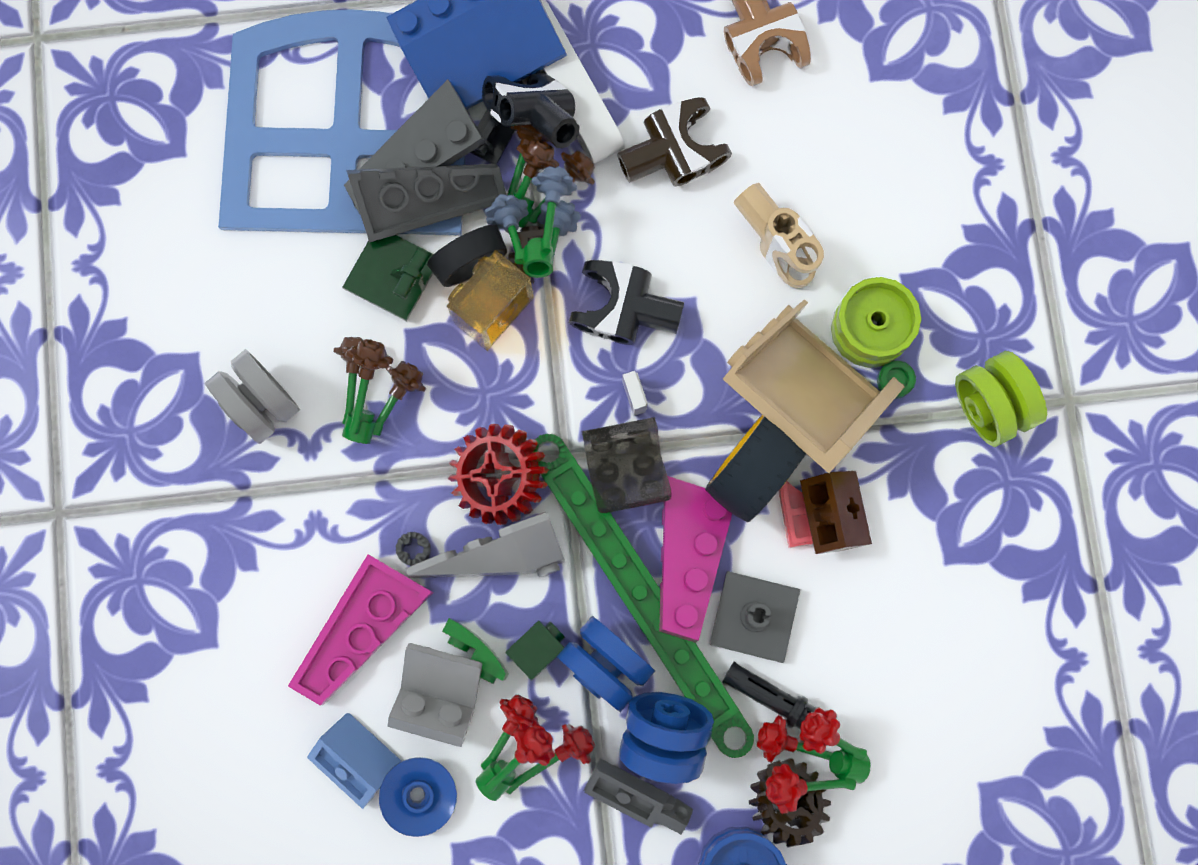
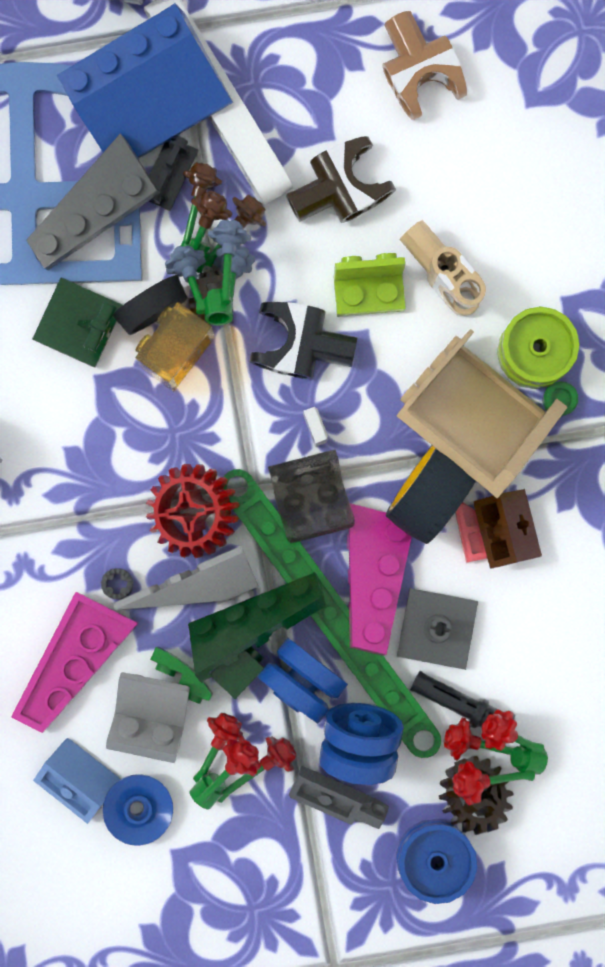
camera: 10 degrees left, 5 degrees up
(363, 359) = (68, 410): plant -> none
(415, 197) = (98, 249): dark grey wing -> none
(529, 606) = (232, 630): none -> dark green wing
(539, 103) = (210, 154): black connector -> none
(699, 247) = (369, 285): none -> lime bracket

